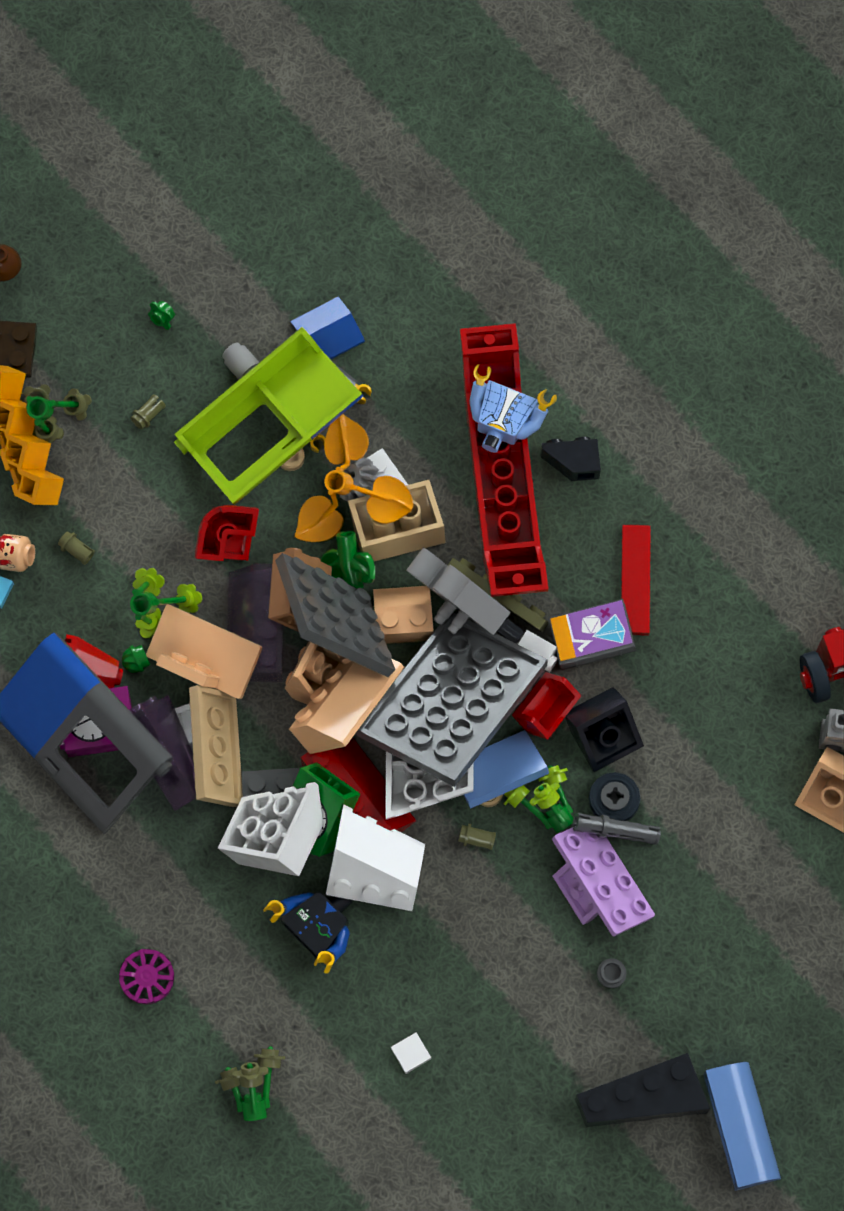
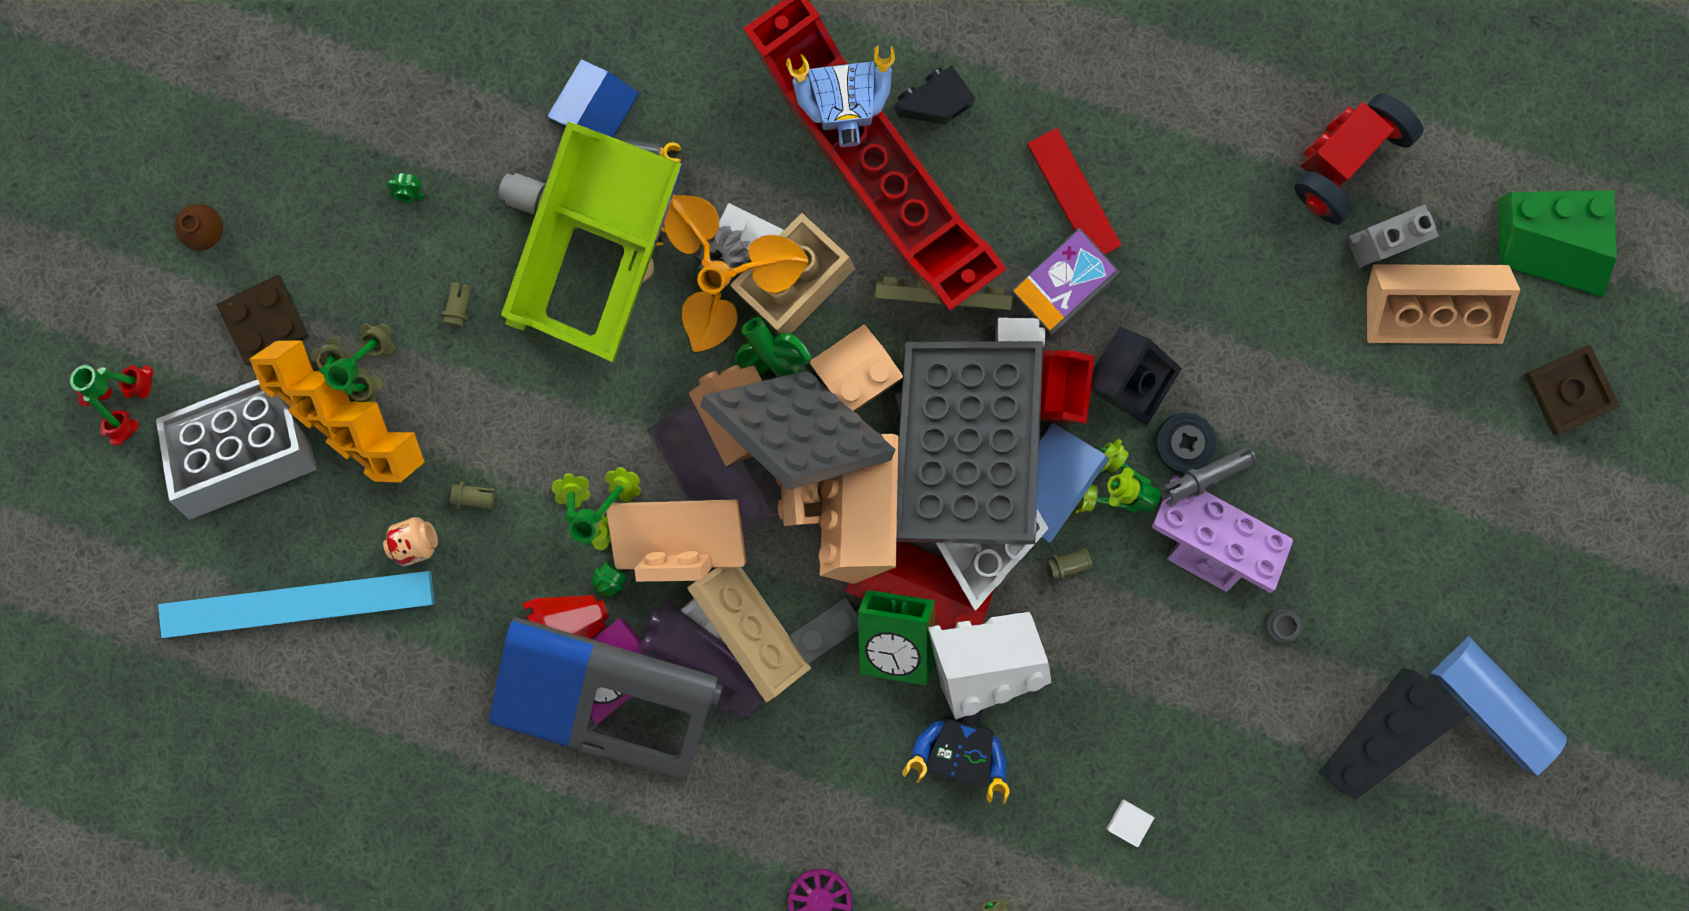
camera: 30 degrees left, 15 degrees up
(226, 533) = (623, 394): red brick -> none
(275, 829) = (866, 686): white wedge -> none
(463, 596) = (914, 326): light grey piece -> none

